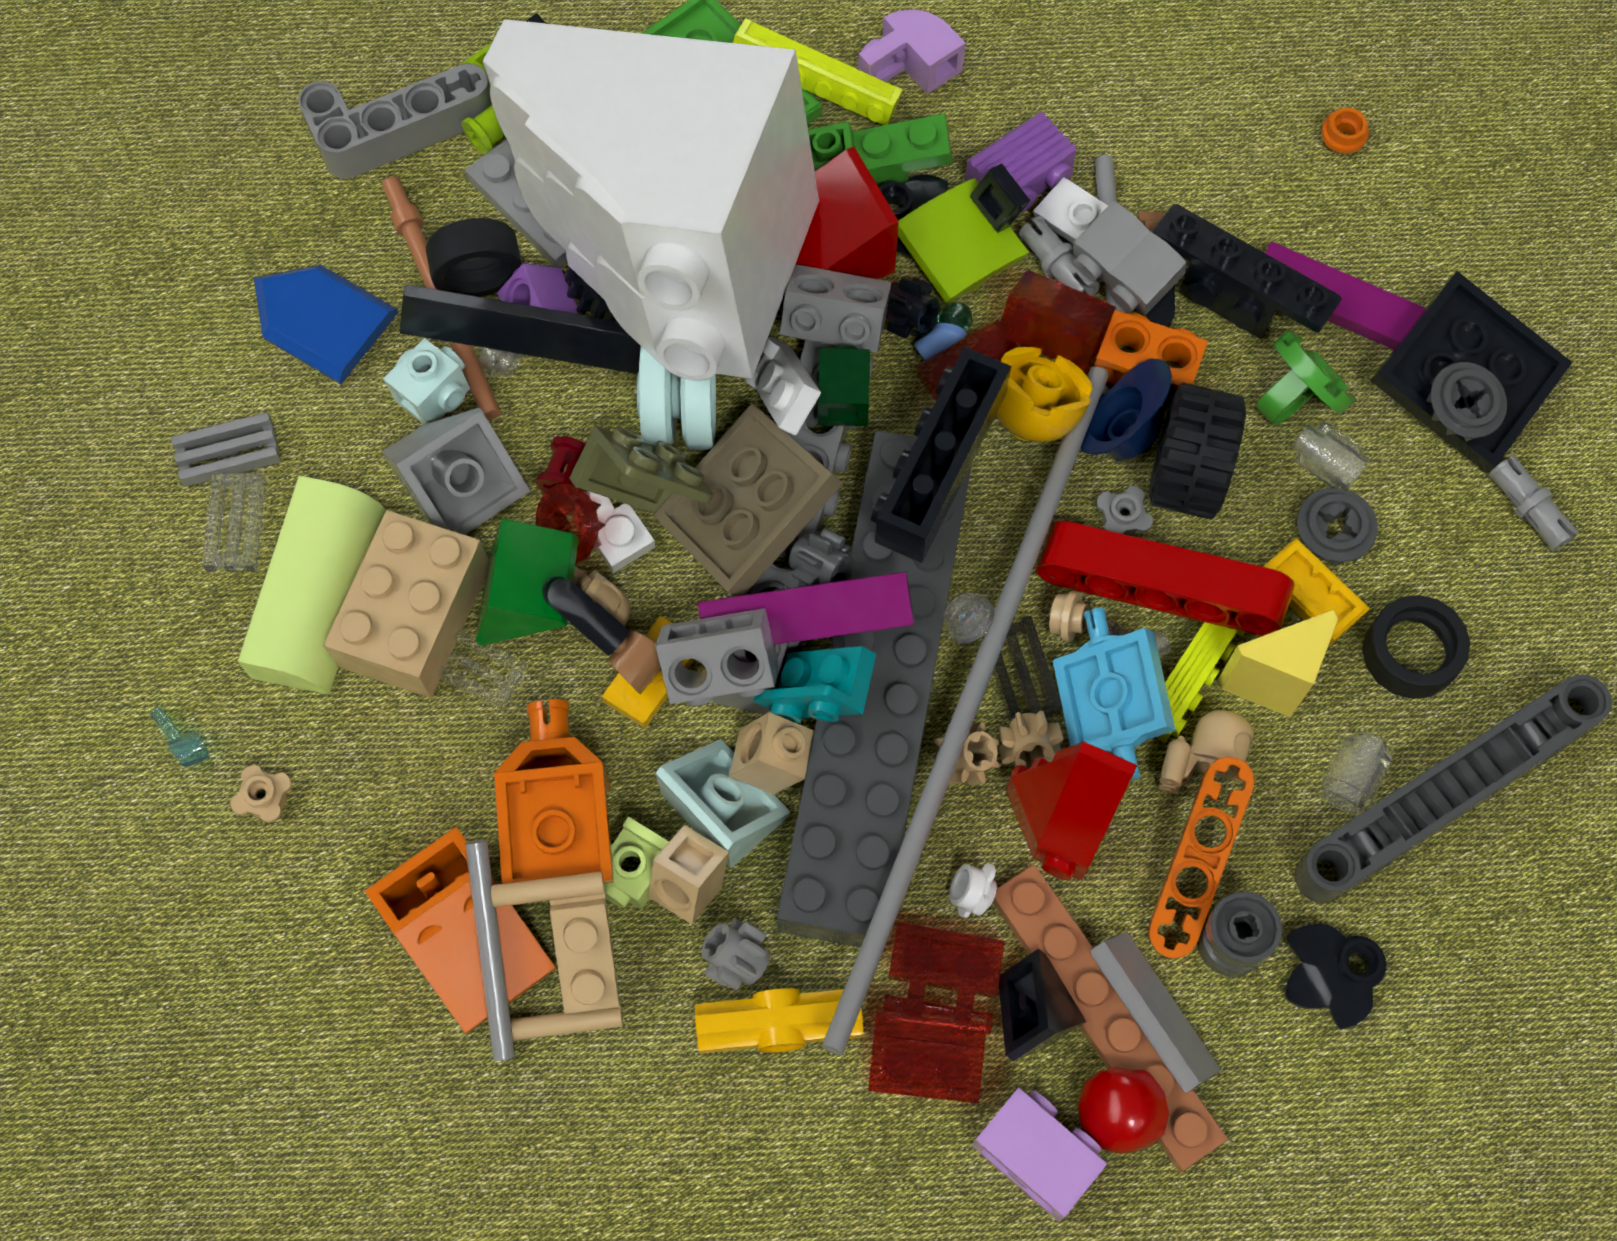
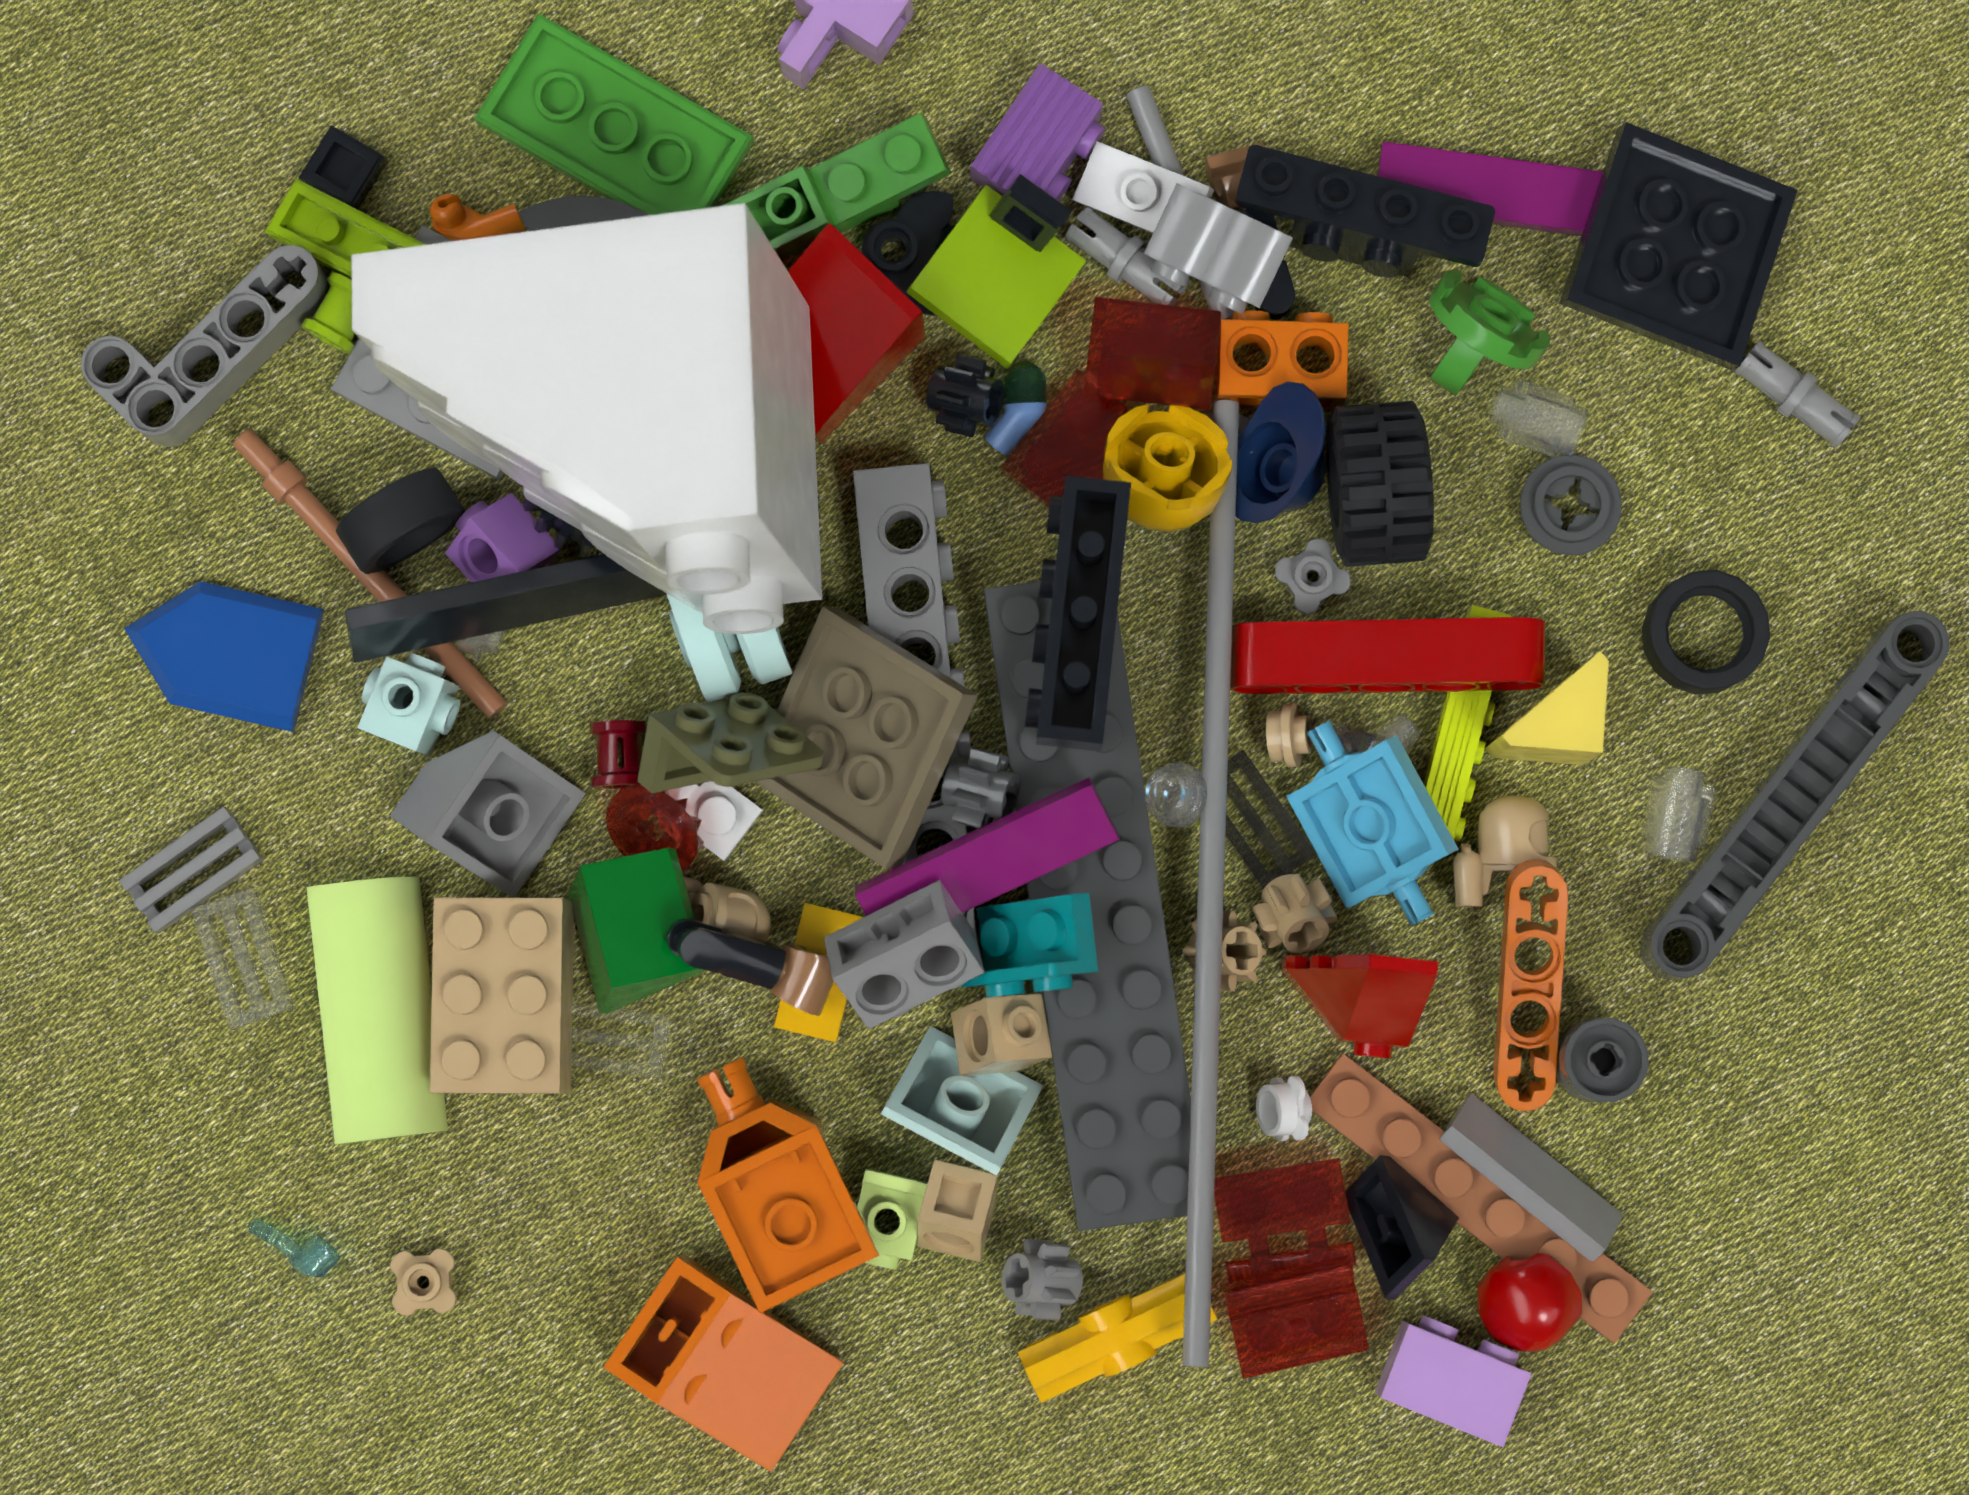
camera: 15 degrees left, 15 degrees up
(490, 950) = (767, 1376): light grey bar -> none
(581, 950) = (871, 1342): tan plate -> none
(784, 386) = (859, 572): white plate -> none
(830, 77) = (730, 98): neon yellow piece -> none
(835, 308) = (881, 446): light grey brick -> none
(843, 386) = (927, 548): dark green brick -> none
(1317, 588) = (1567, 602): yellow plate -> none
(1326, 977) = (1709, 1067): black plate -> none
(1468, 380) = (1711, 300): dark grey gear -> none

